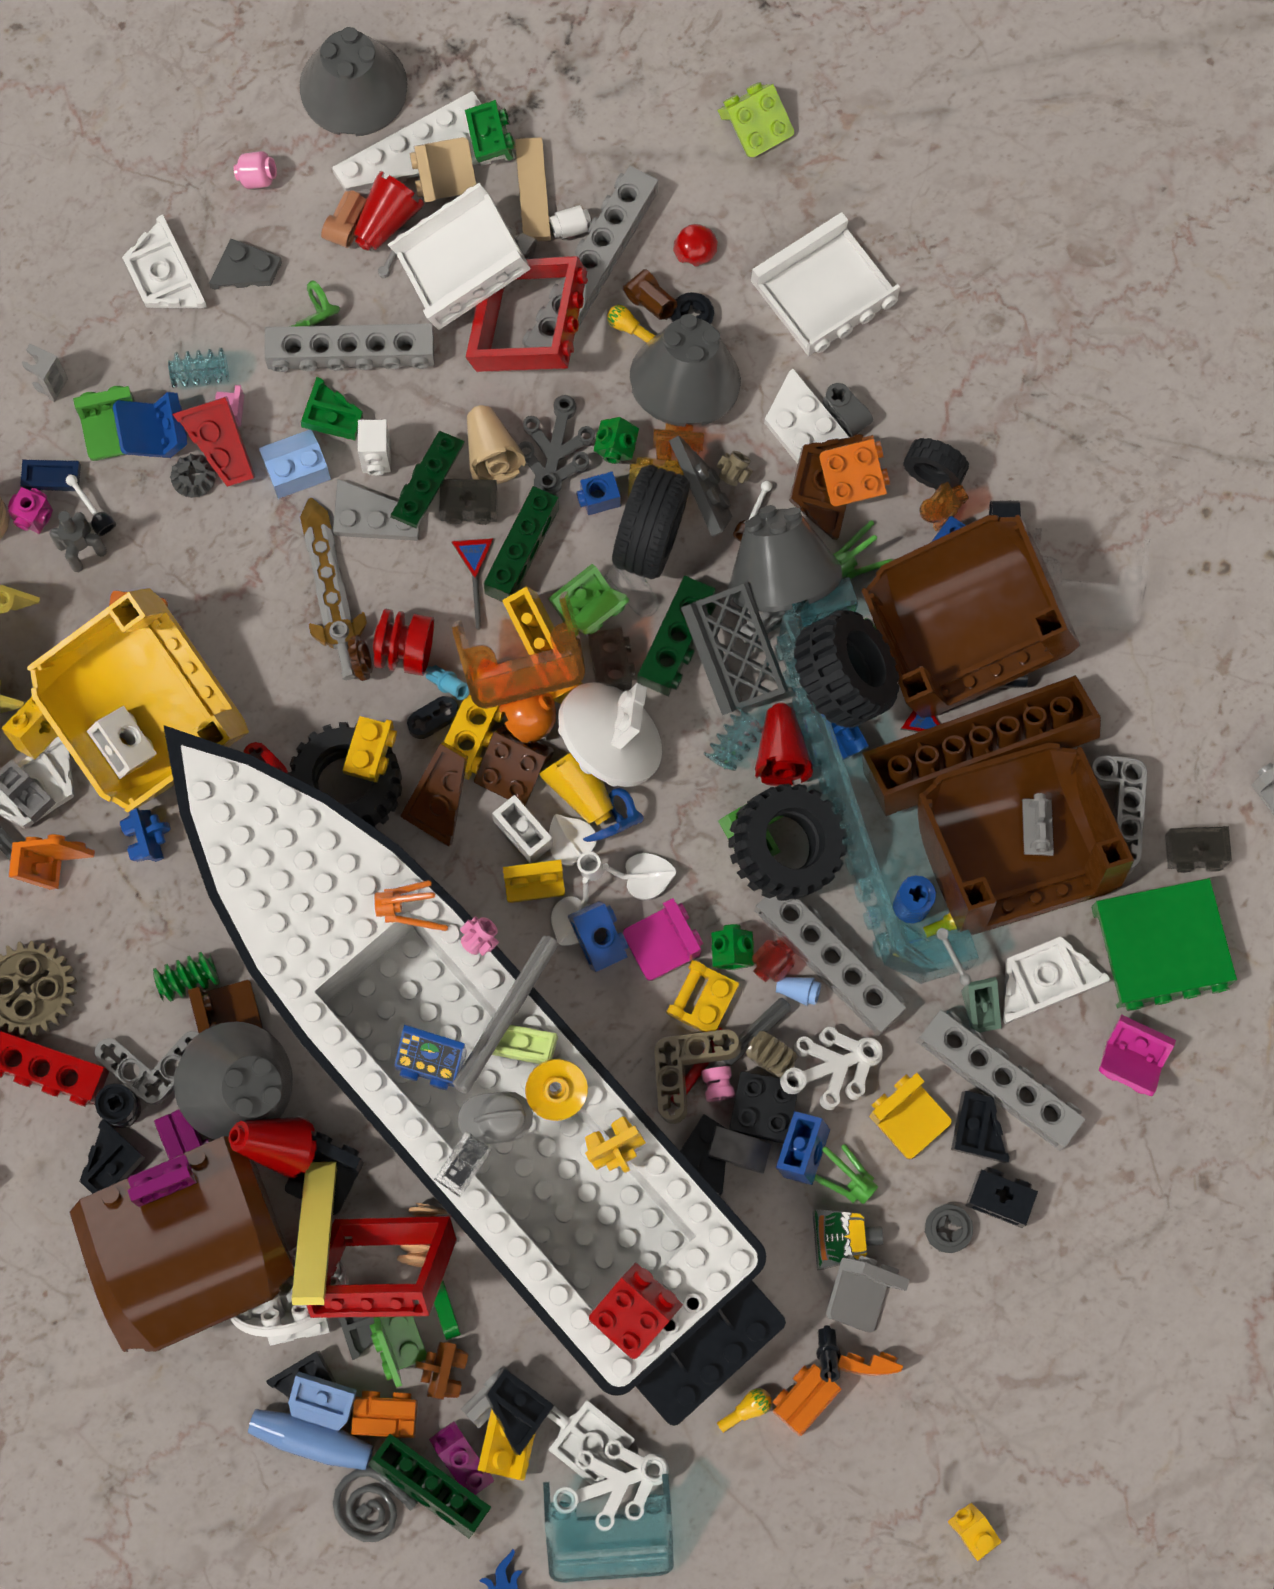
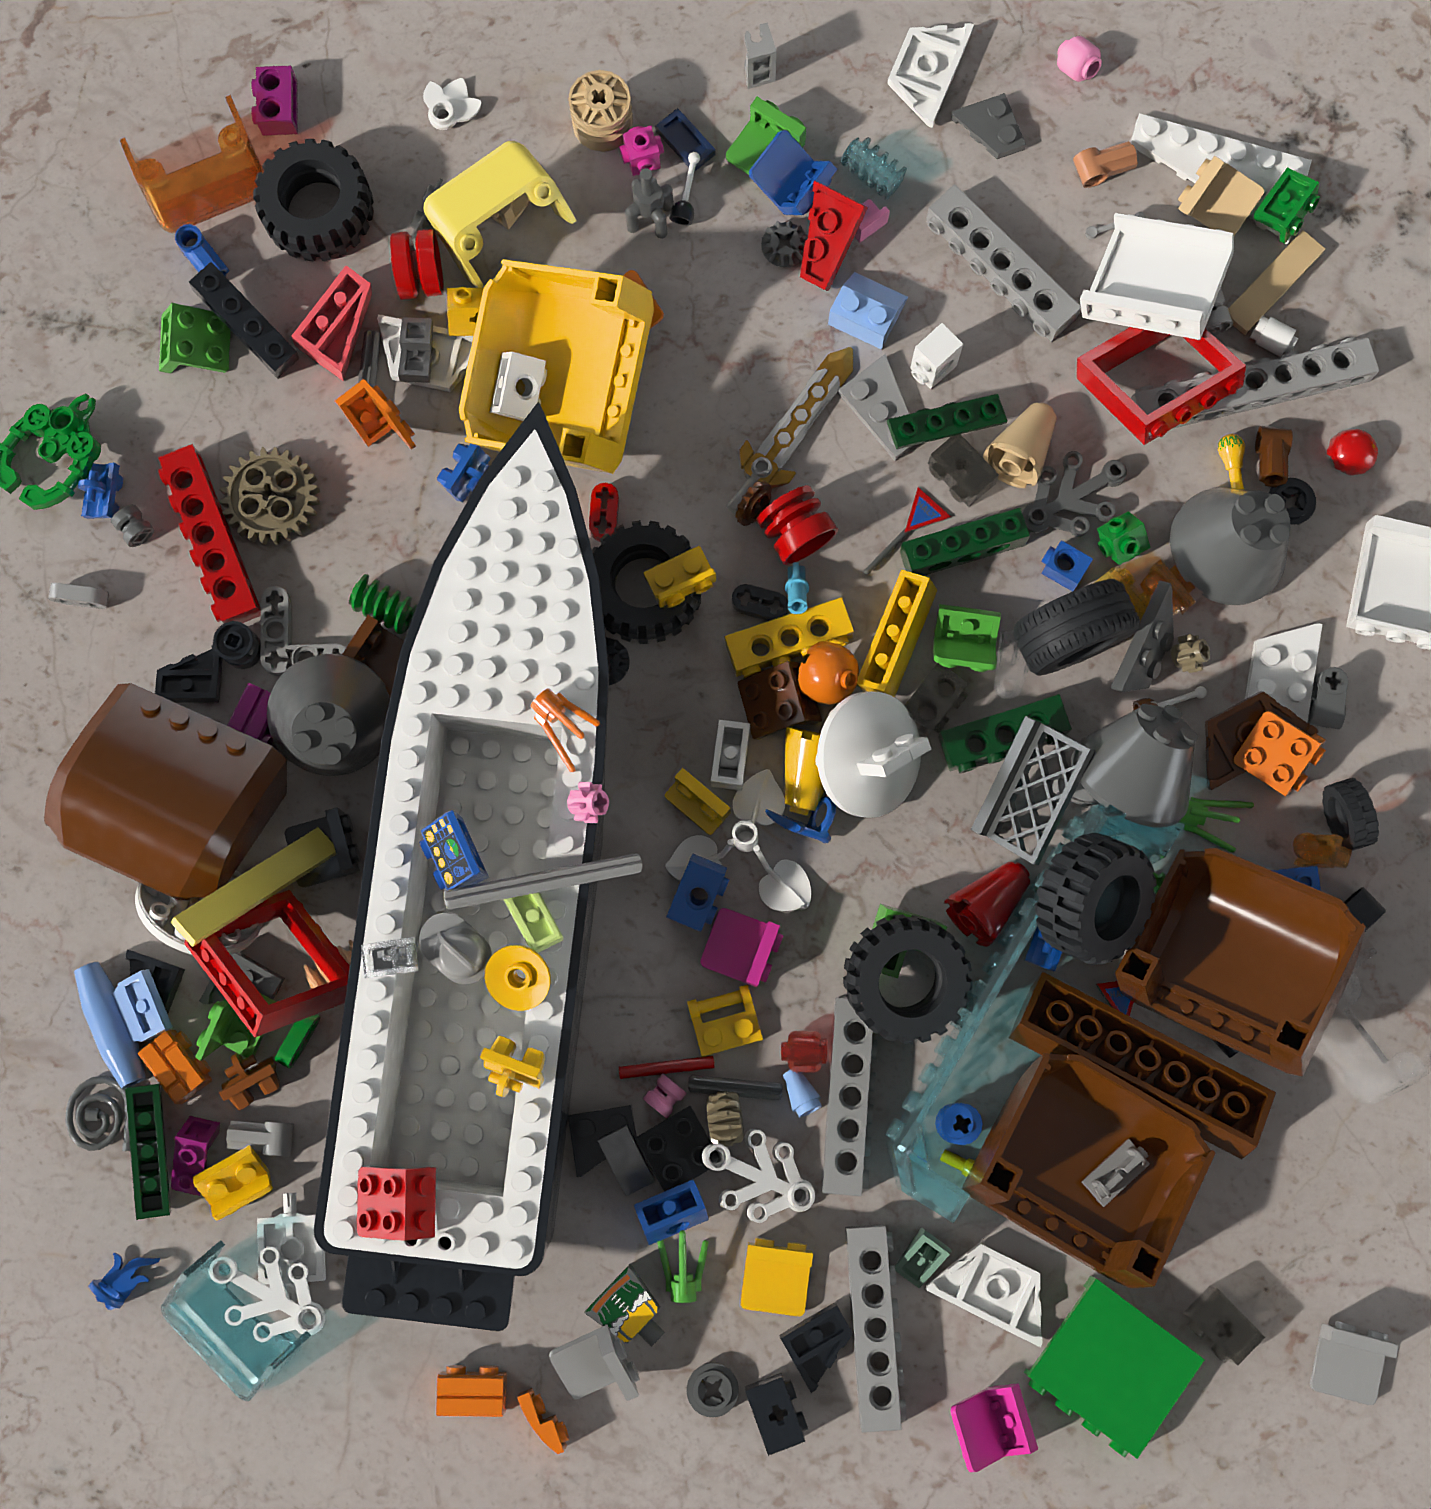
camera: 55 degrees right, 5 degrees up
(160, 1180) = (189, 731): magenta bracket -> none
(276, 1143) = (303, 790): red cone -> none
(323, 311) = (1015, 216): bright green piece -> none
(330, 413) = (934, 297): green wing -> none
(353, 84) = (1226, 65): dark grey cone -> none
(385, 212) = (1140, 187): red cone -> none
(438, 795) = (698, 664): reddish brown wing -> none
(517, 1409) = (263, 1167): black wing -> none
(527, 676) = (852, 645): clear orange windscreen -> none
(682, 1057) = (660, 1047): dark tan beam -> none
(732, 948) = (785, 1008): green brick -> none
(735, 740) = (959, 859): clear light blue piece -> none
(754, 1404) = (433, 1353): yellow piece -> none
(828, 1353) = (522, 1380): black axle -> none
(942, 935) = (945, 1176): light grey hinge -> none
(1126, 788) = (1217, 1216): light grey beam -> none

